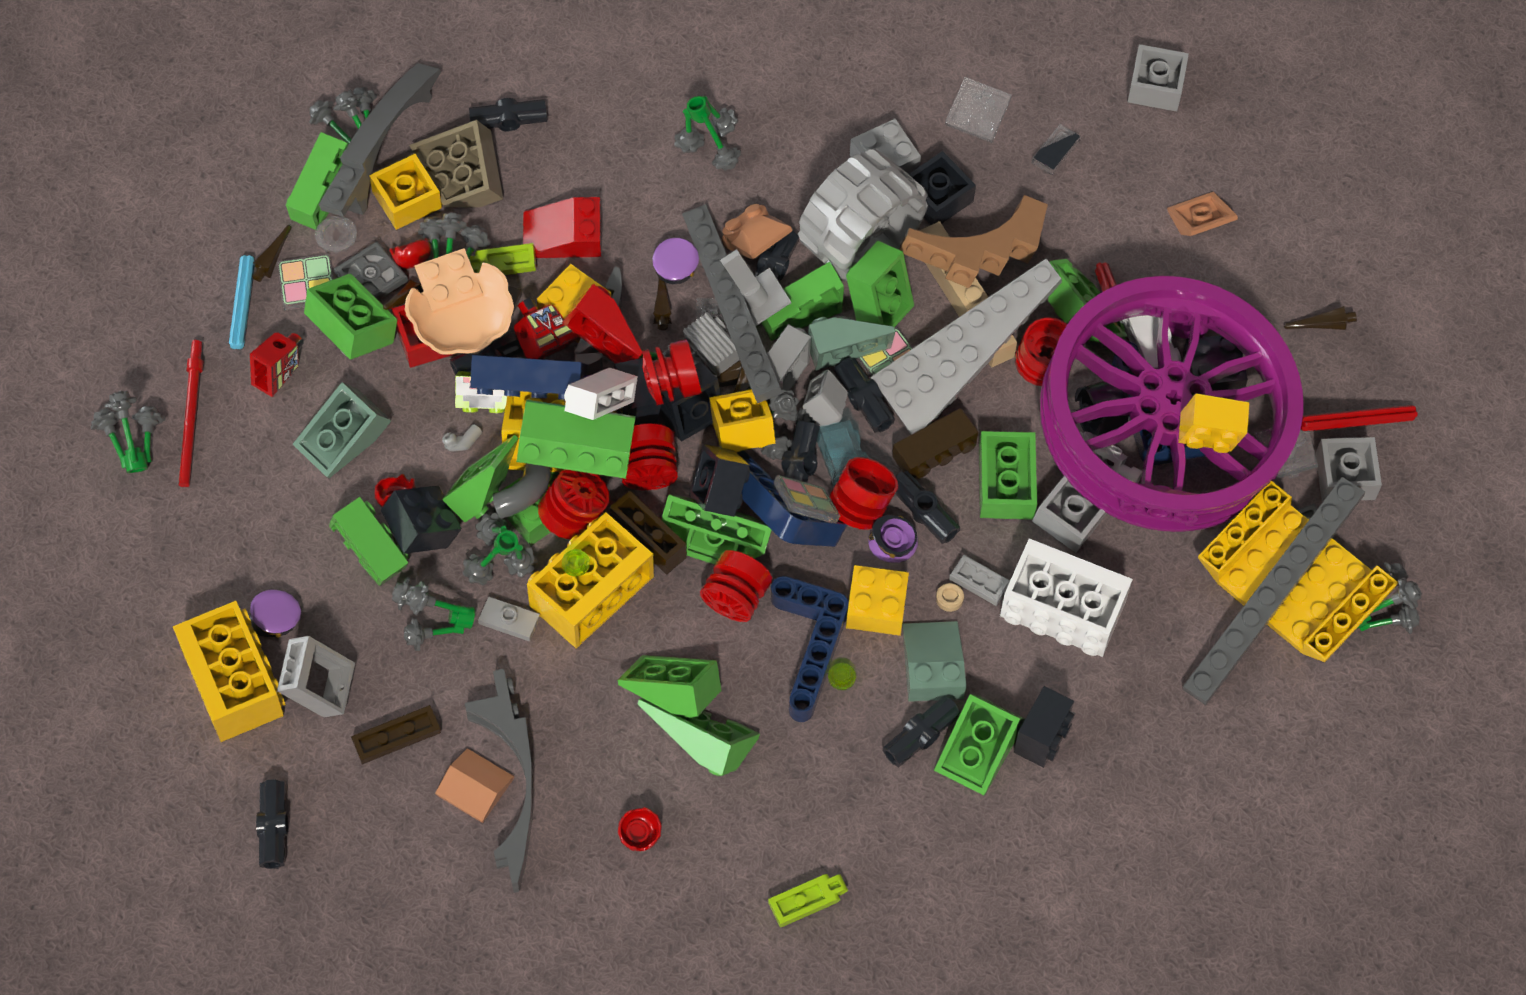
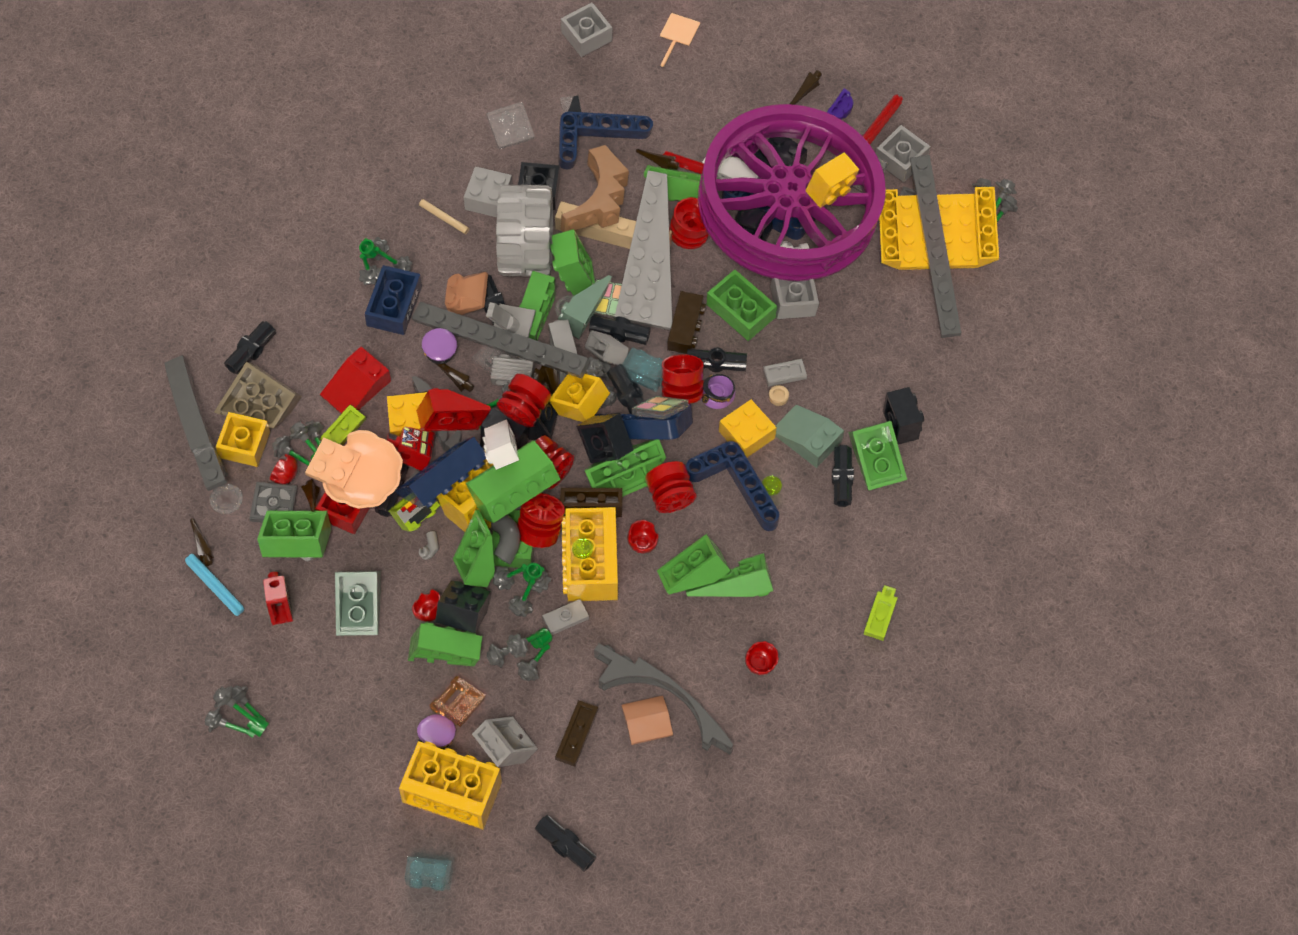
camera: 45 degrees left, 0 degrees up
(126, 732) = (428, 873): none -> clear light blue brick
(194, 368) = (230, 645): red bar -> none
(301, 274) = (237, 540): tile -> none
(315, 180) = (186, 477): bright green wedge -> none
(324, 610) = (464, 703): none -> clear orange plate
(346, 101) = (156, 416): dark grey plant -> none
(660, 609) = (642, 536): none -> red hair
(680, 181) = (393, 300): none -> dark blue brick
(821, 144) = (443, 216): none -> tan bar
(1057, 181) = (597, 130): none -> dark blue beam
(1065, 598) = (841, 341): white brick -> none
(1090, 268) = (663, 161): none -> dark brown piece
(1201, 214) = (686, 84): nougat slope -> none
(1258, 156) = (678, 30): none -> light nougat piece
(1340, 370) = (842, 105): none -> dark purple plate

